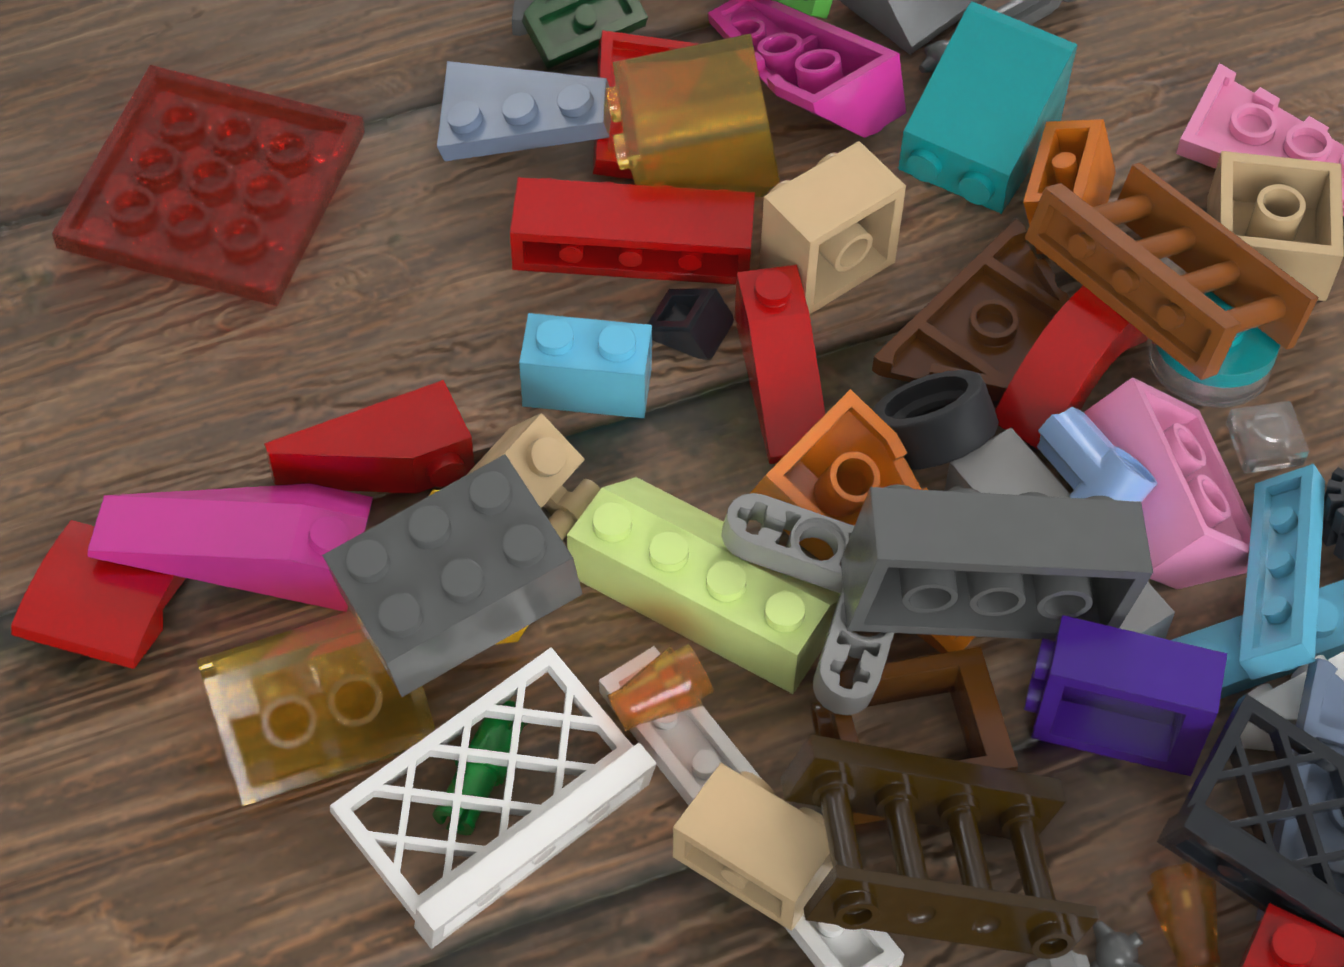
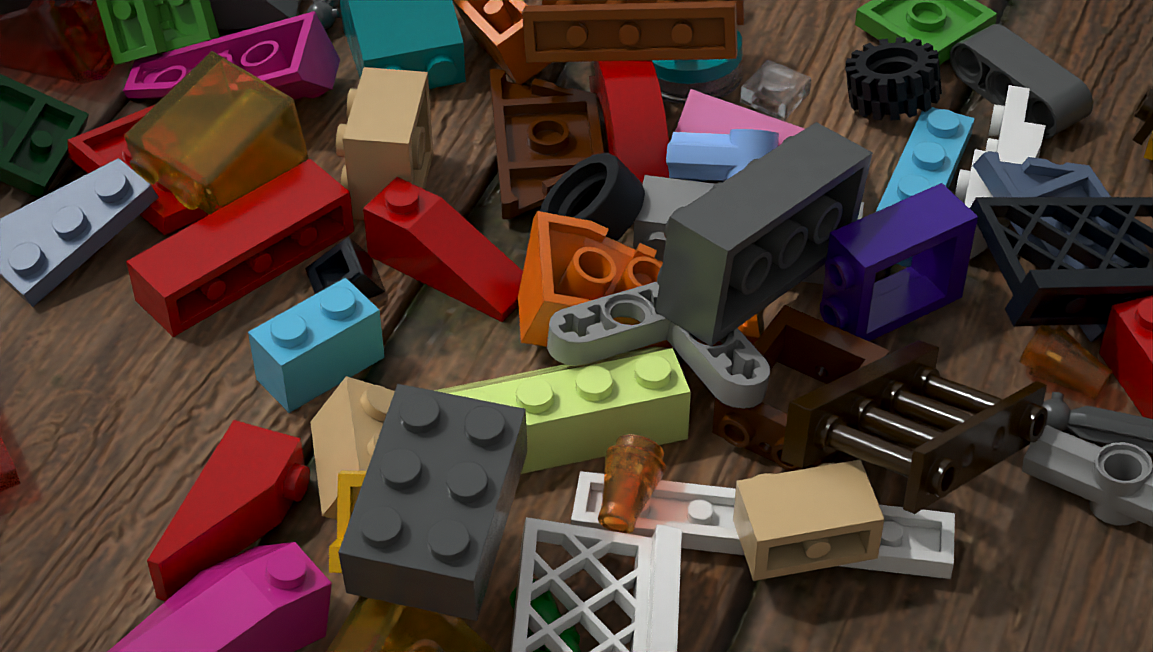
camera: 45 degrees left, 10 degrees down
(1283, 573) = (893, 136): medium azure plate -> none

